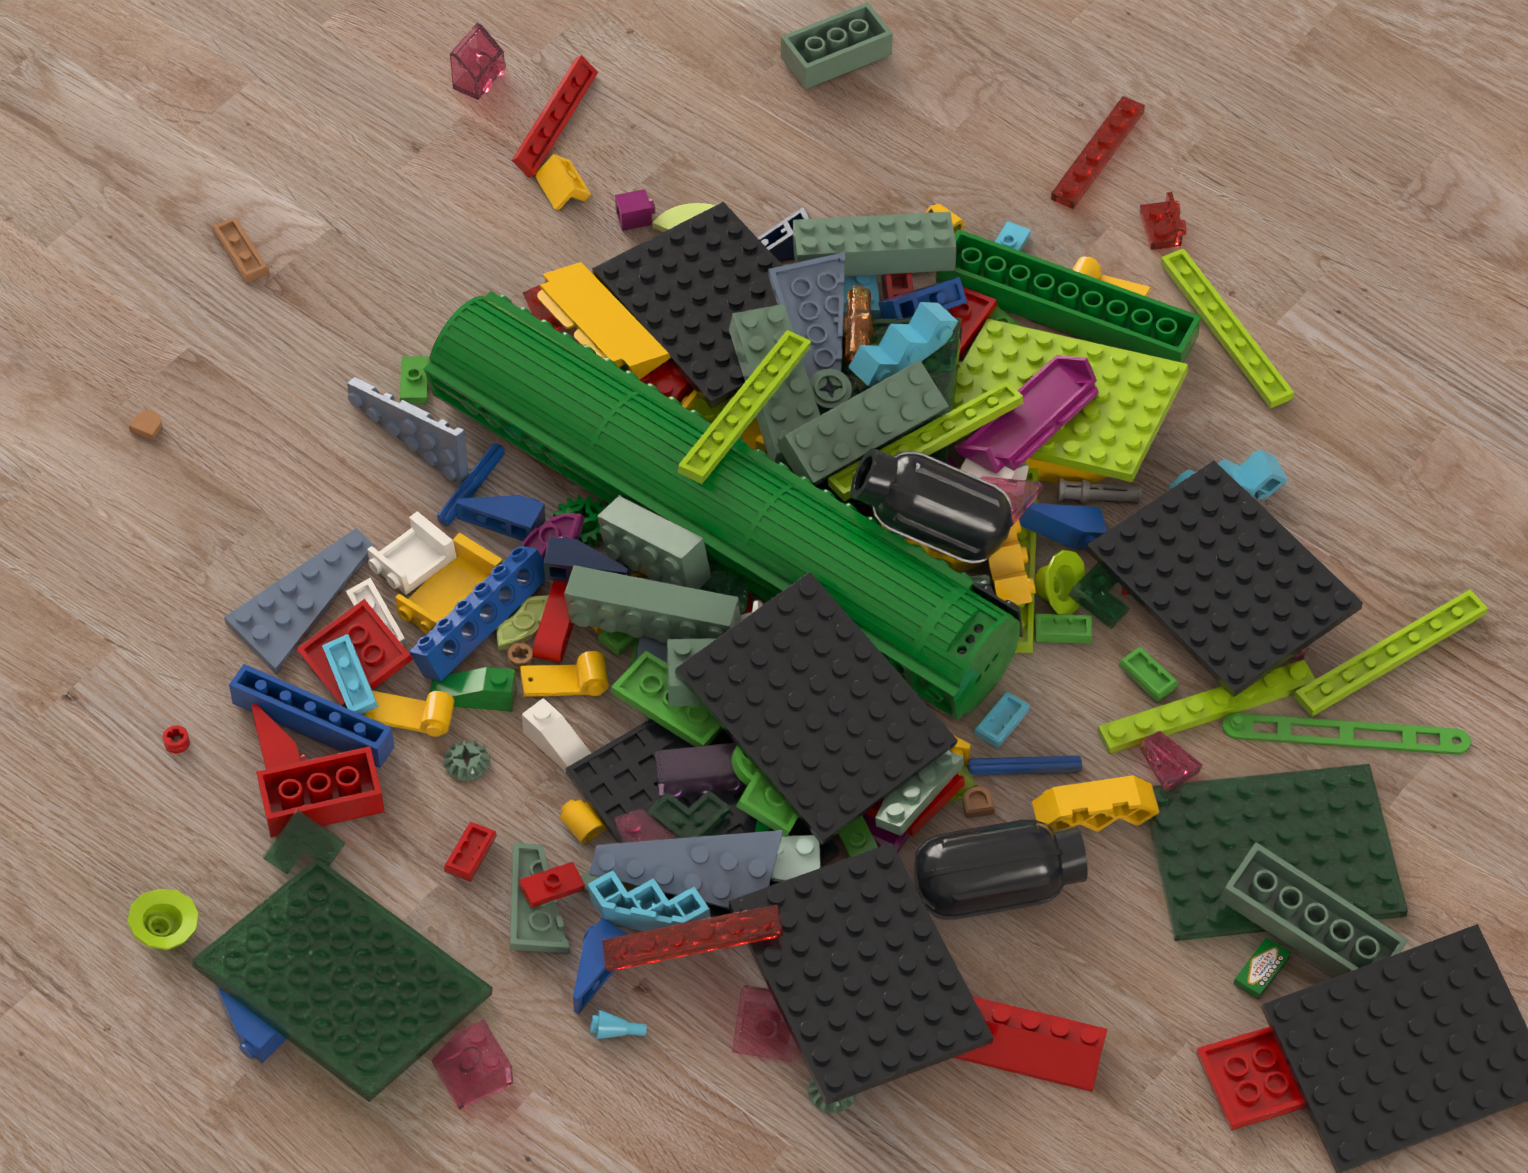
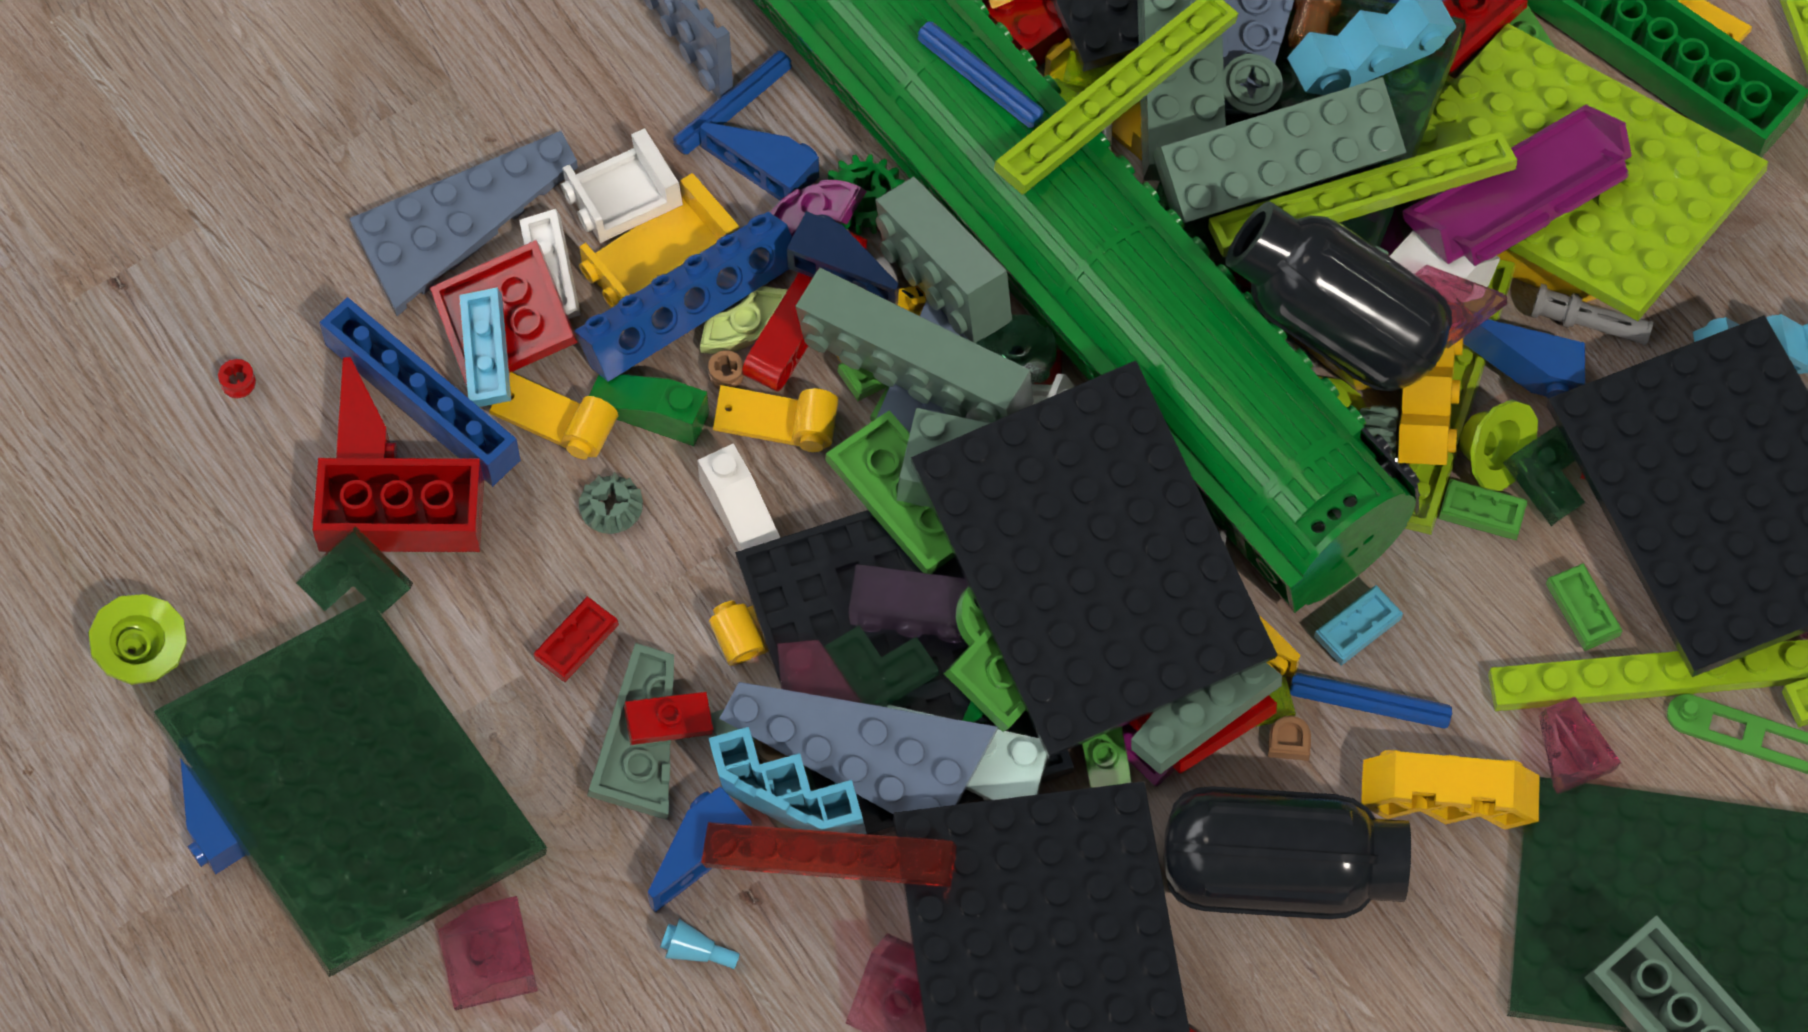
camera: 15 degrees right, 10 degrees up
(649, 415) = (980, 74): none -> blue axle

